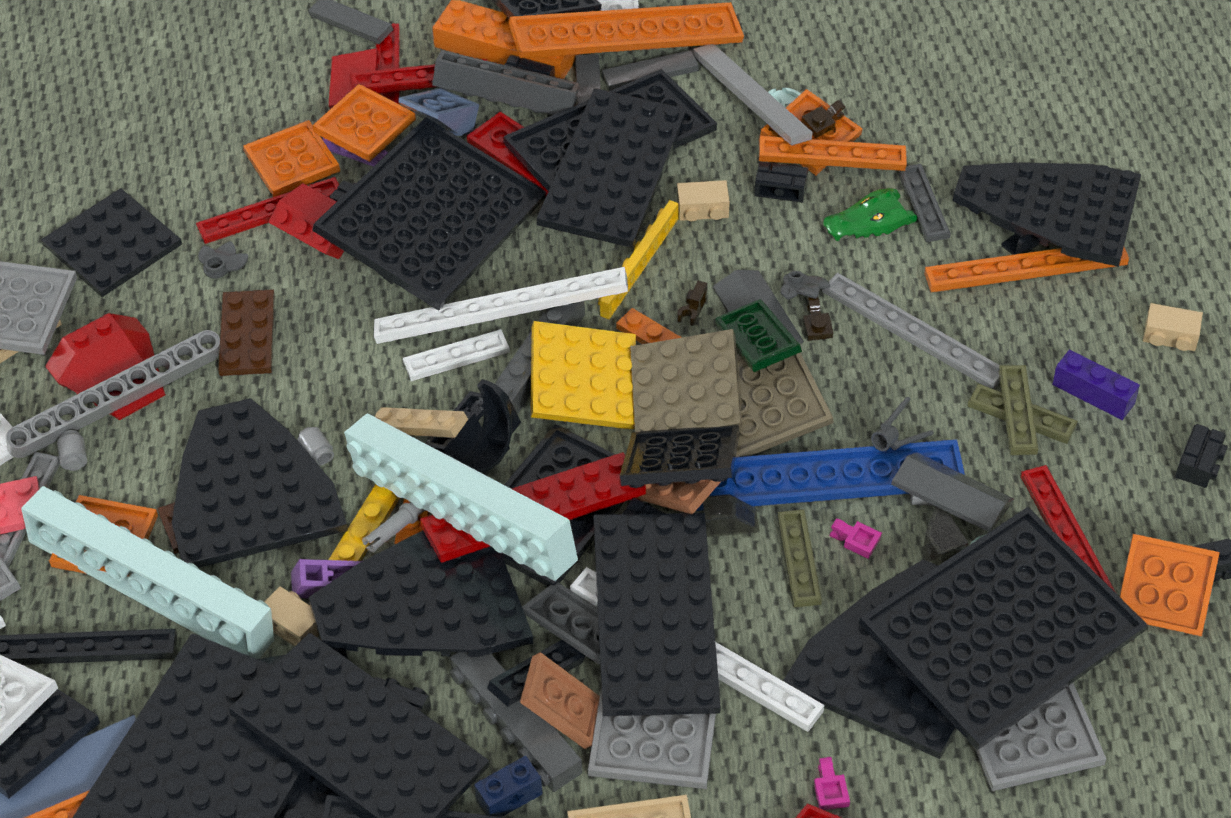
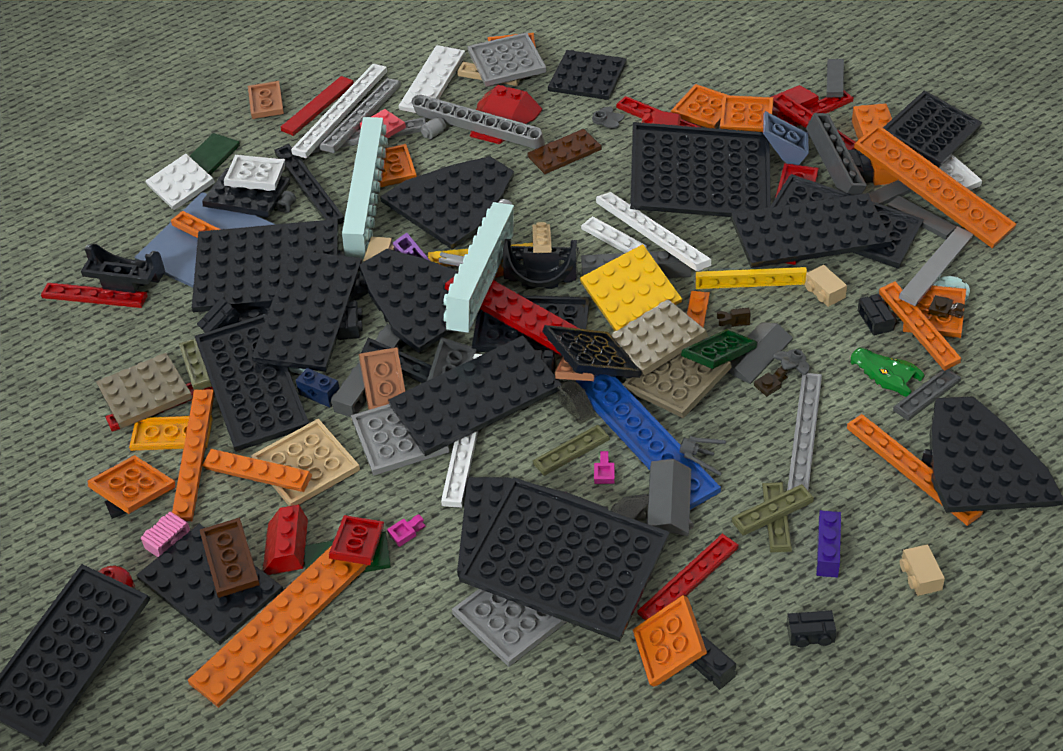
camera: 65 degrees right, 5 degrees down
(75, 688) = (284, 205): none -> dark grey bush

